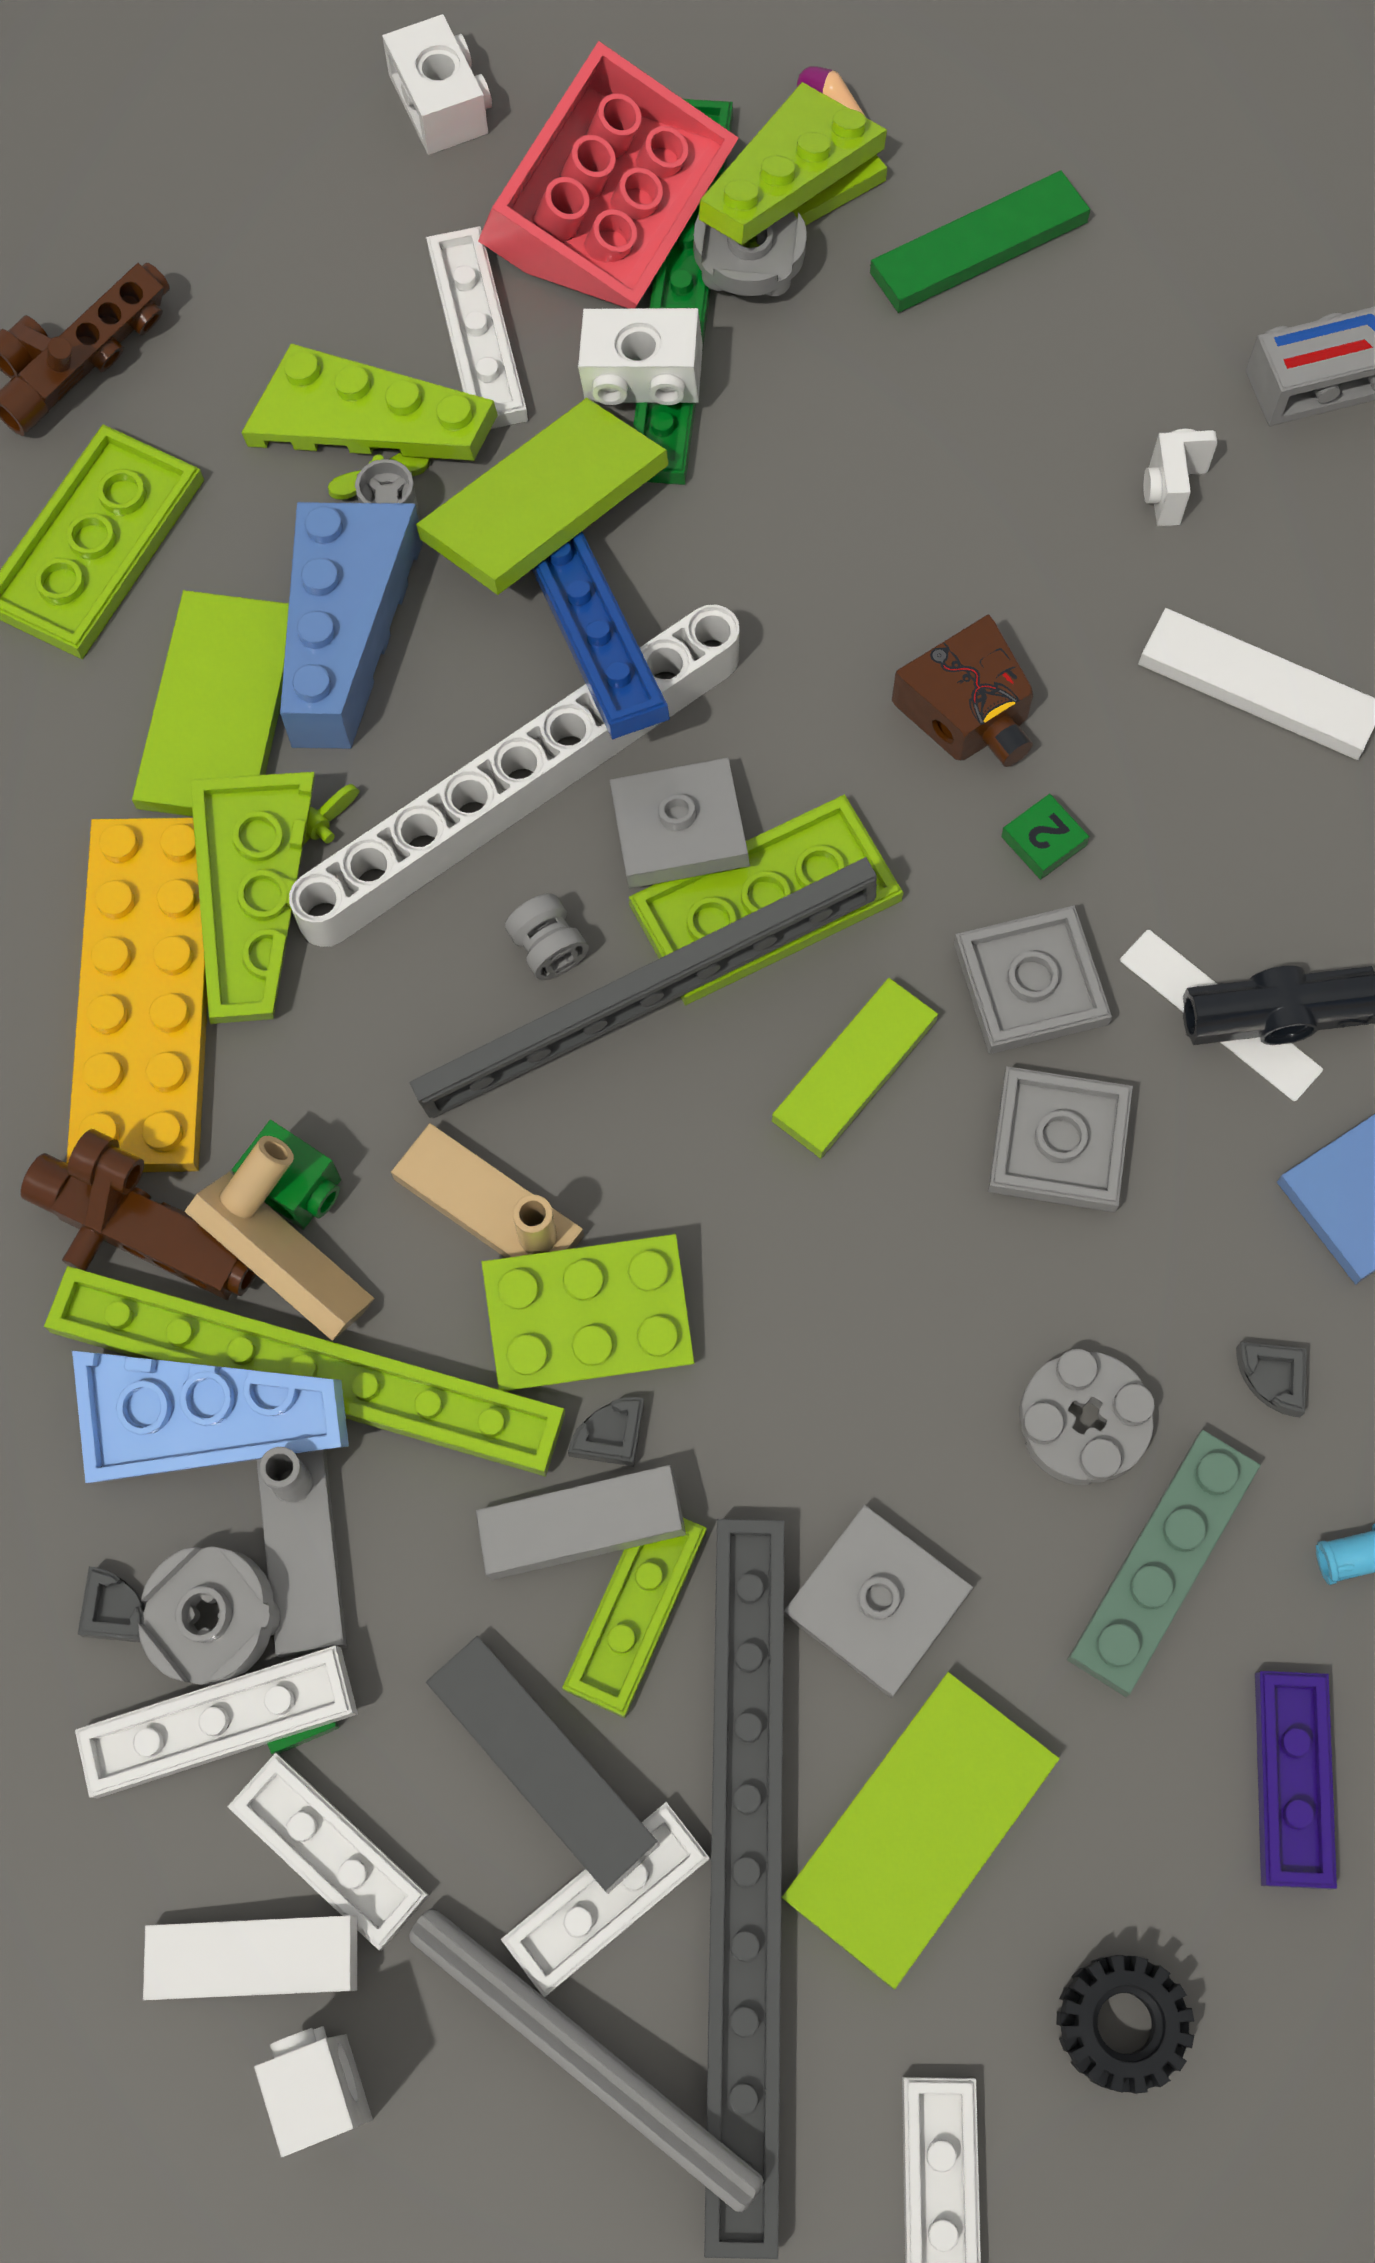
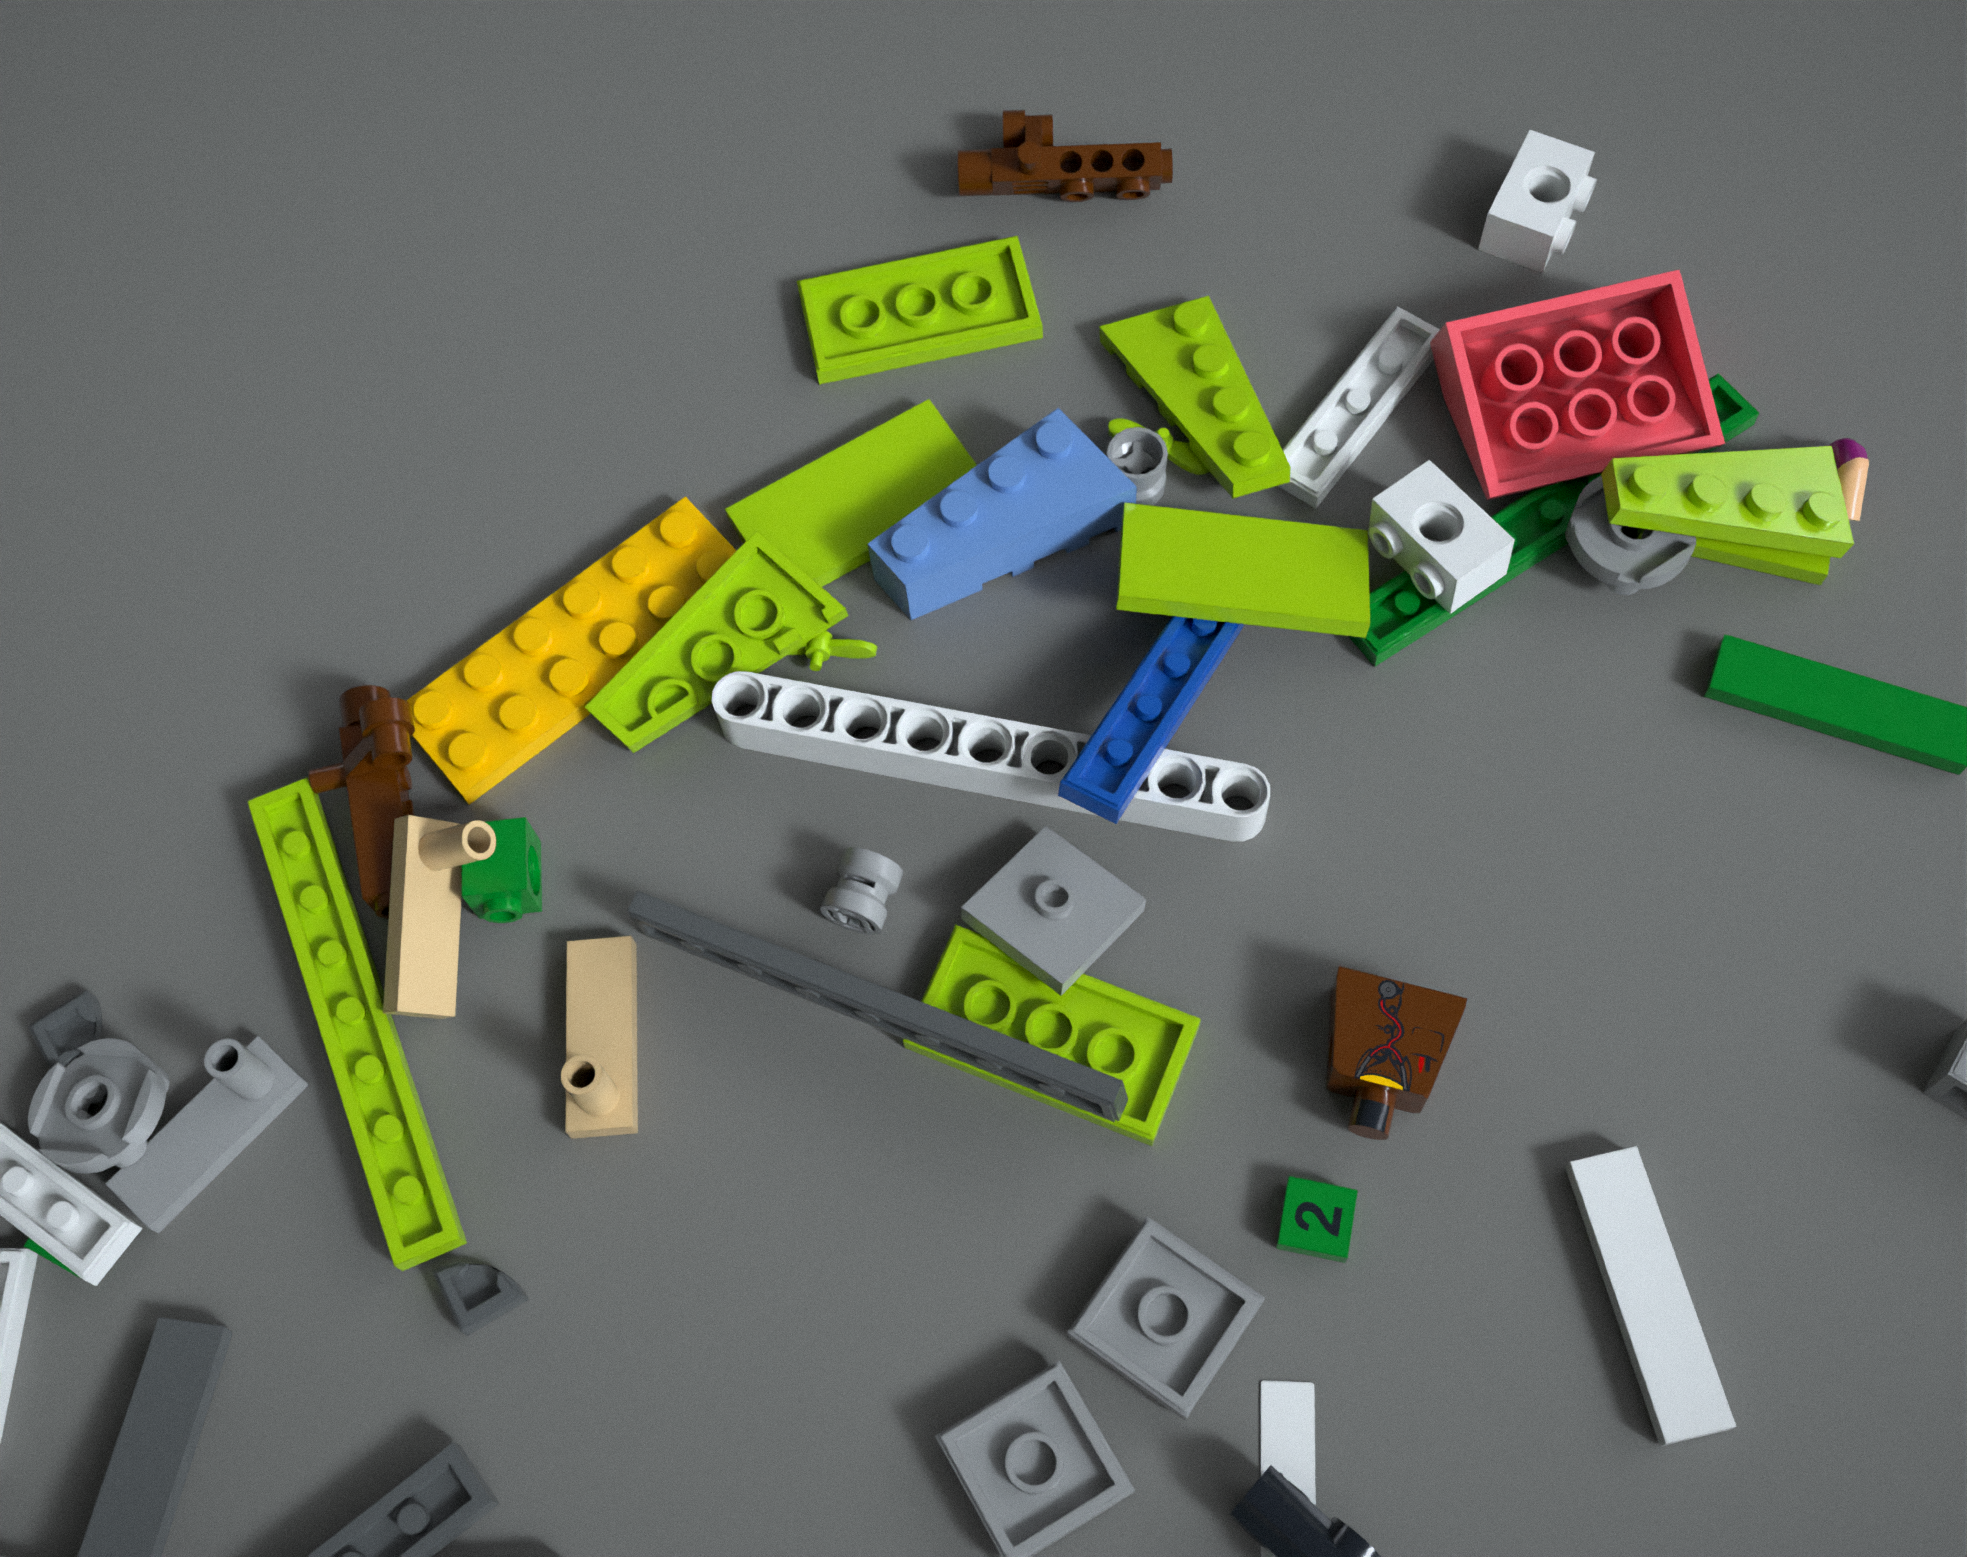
camera: 55 degrees right, 5 degrees down
(186, 1416) = (251, 969): light blue wing -> none
(580, 1522) = (375, 1332): light grey tile -> none
(587, 1312) = (561, 1191): lime plate -> none
(632, 1620) = (339, 1437): lime tile -> none
(854, 1068) = (958, 1231): lime tile -> none
(1167, 478) = (1793, 1029): white bracket -> none

